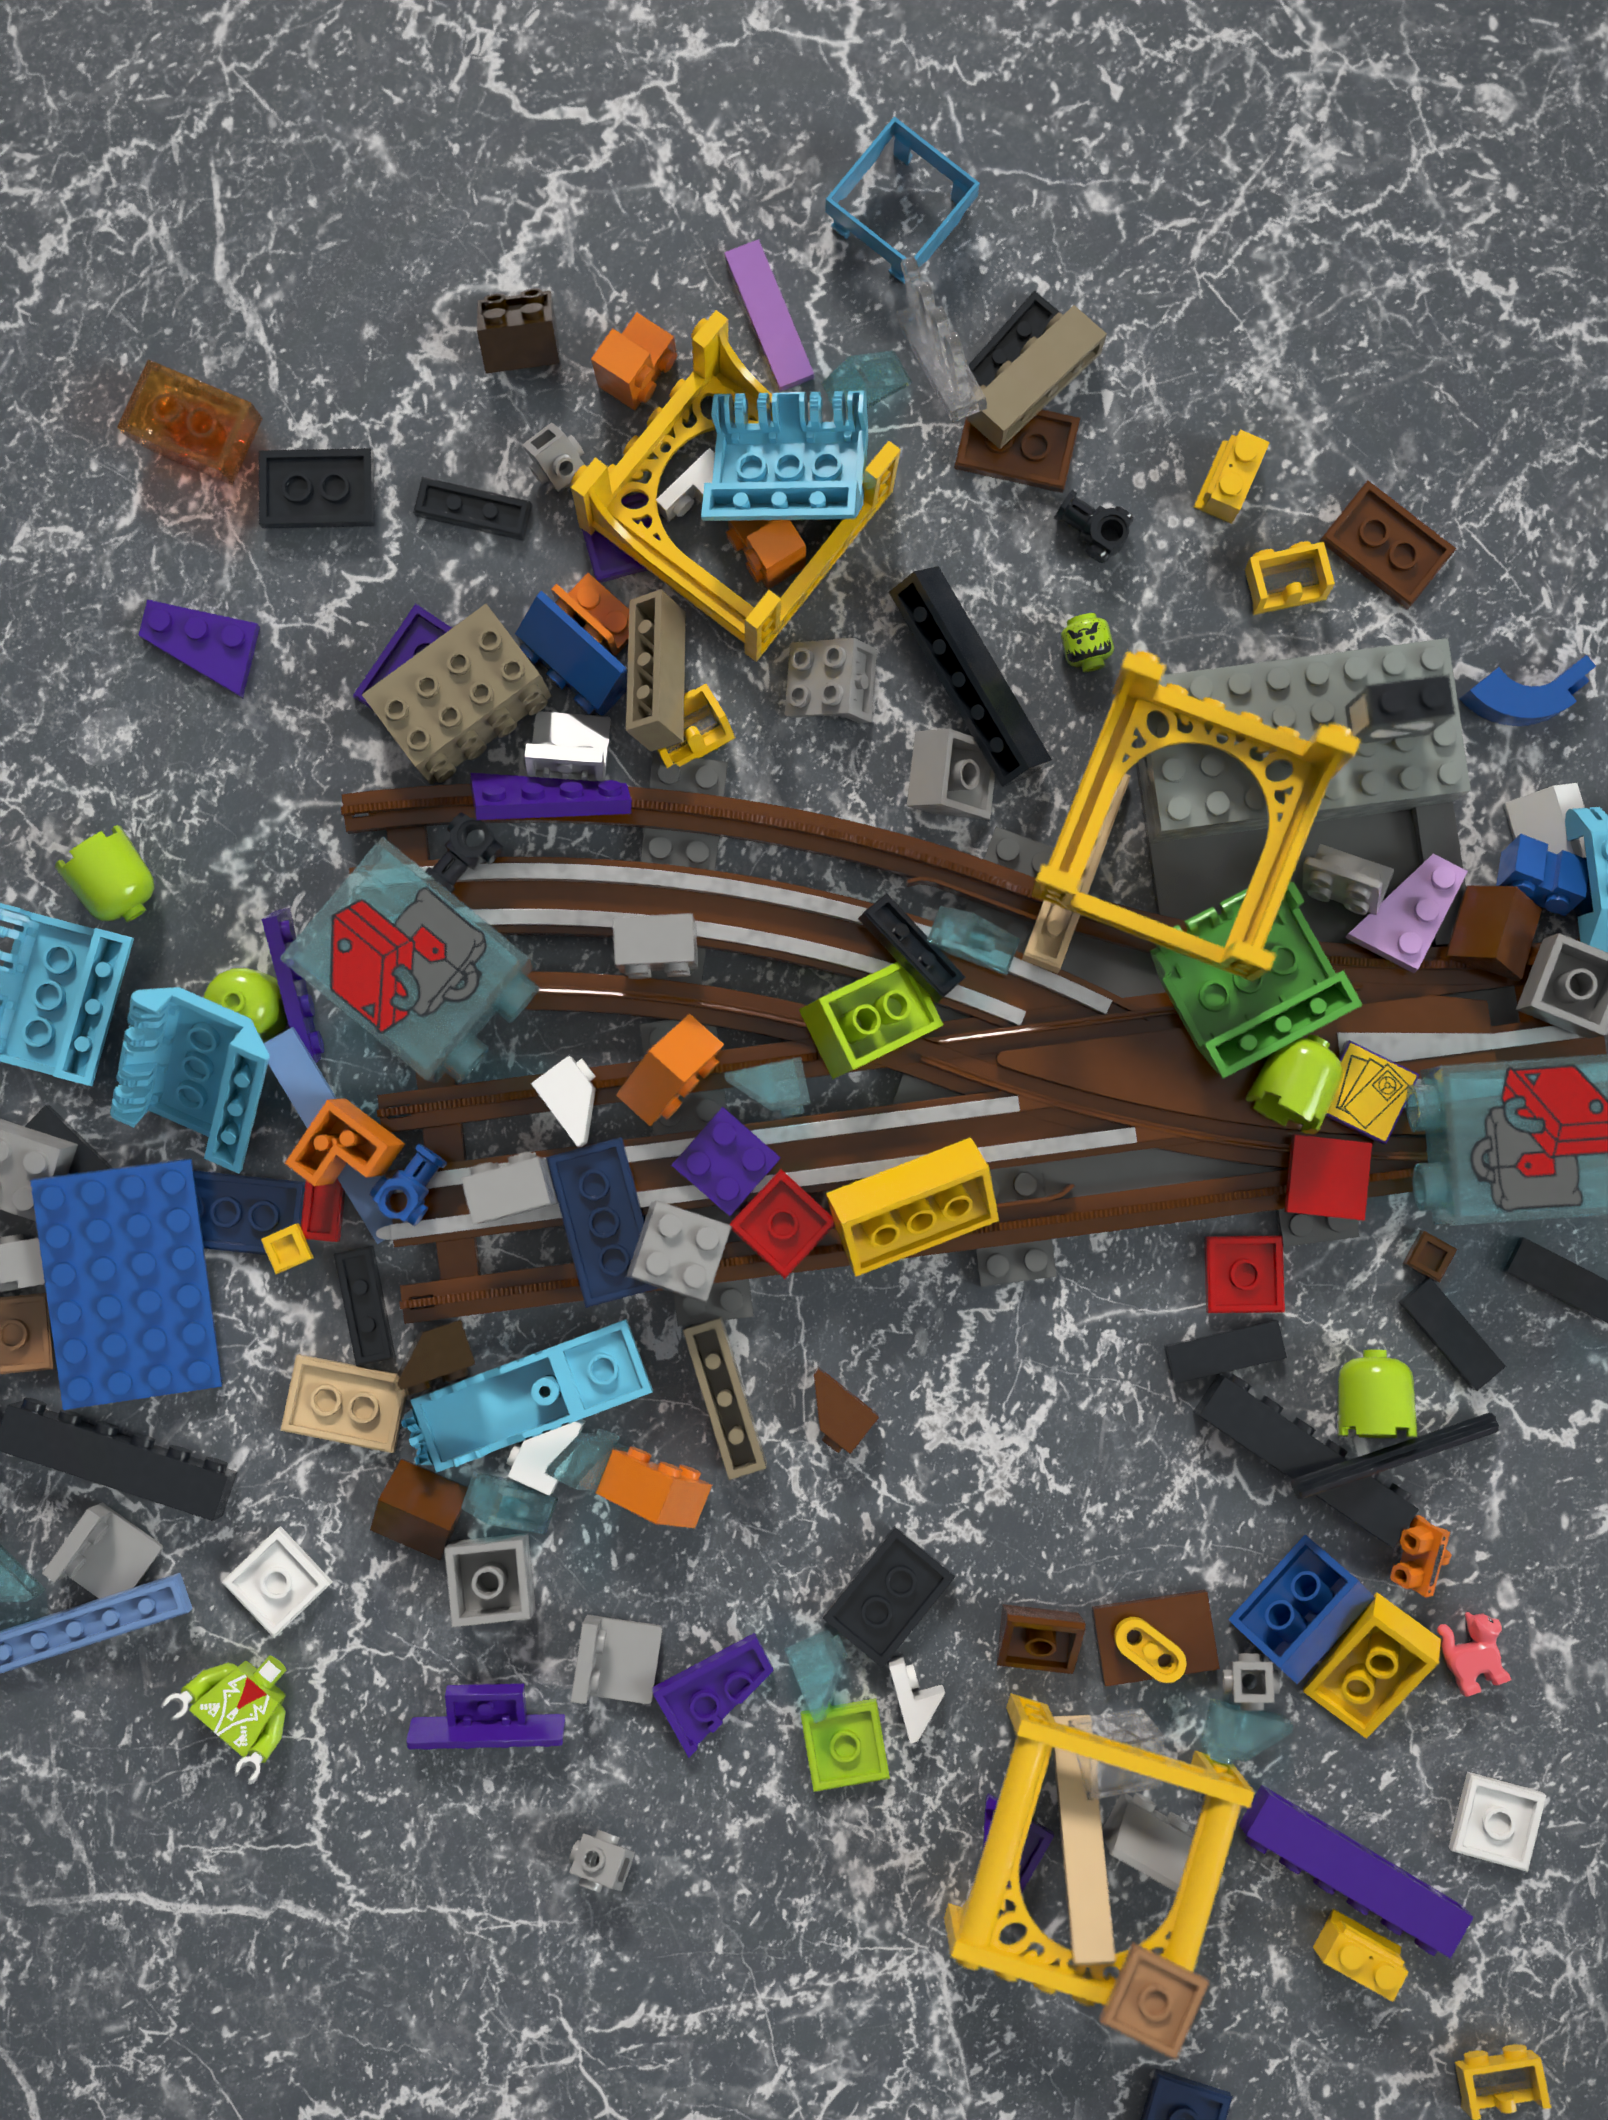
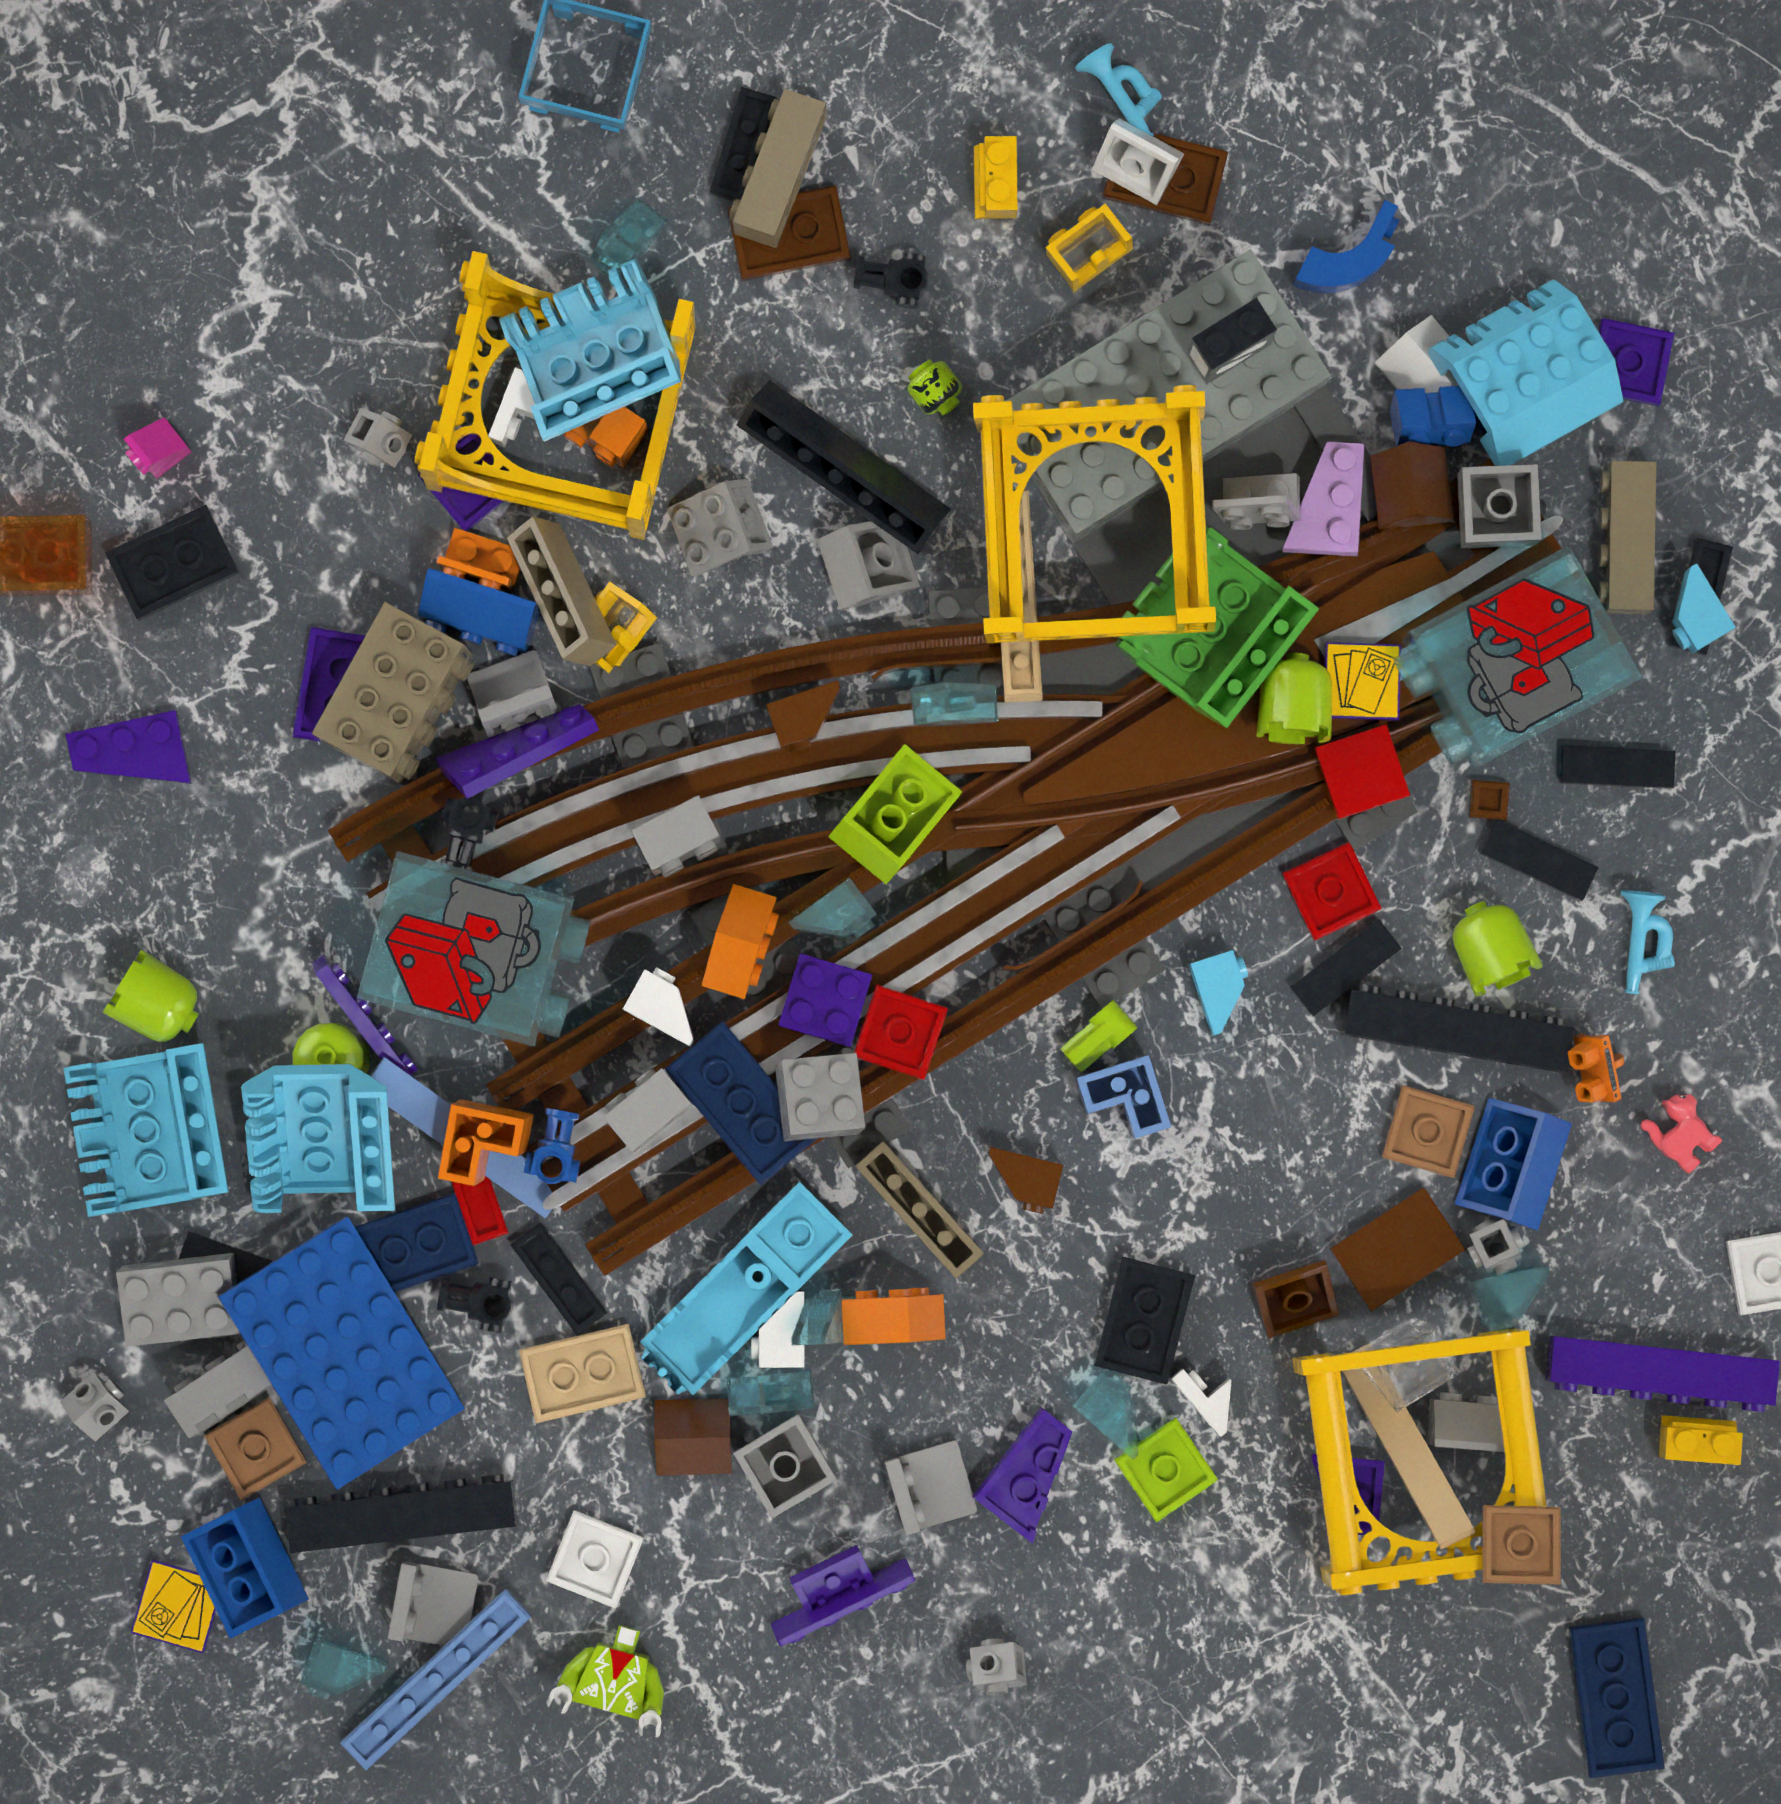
camera: 30 degrees left, 0 degrees up
(275, 1292) = (476, 1301): none -> black connector
(287, 1248) = (467, 1258): yellow tile -> none
(347, 375) = (156, 448): none -> dark pink slope
(435, 1354) = (647, 1286): dark brown slope -> none
(472, 508) = (321, 516): black tile -> none
(517, 331) = (289, 336): dark brown slope -> none
(632, 361) = (408, 317): orange brick -> none
(769, 315) = (510, 217): medium lavender tile -> none
(827, 885) = (802, 715): none -> reddish brown slope
(910, 948) = (902, 737): black tile -> none
(913, 1206) = (1008, 963): yellow slope -> none
(936, 348) = (682, 188): clear fence -> none
(974, 1308) = (1104, 1032): none -> lime piece
(976, 1372) = (1132, 1086): none -> medium blue brick
(1099, 1316) = (1218, 986): none -> medium azure slope
(1148, 1650) = (1394, 1259): yellow plate -> none
(1233, 1540) = (1428, 1131): none -> medium nougat tile
(1370, 516) = (1137, 161): none -> white slope
(1373, 414) = (1099, 65): none -> medium azure piece
(1374, 1666) = (1598, 1185): yellow slope -> none
(1394, 1455) = (1532, 990): black axle -> none
(1525, 1437) = (1641, 906): none -> medium azure piece

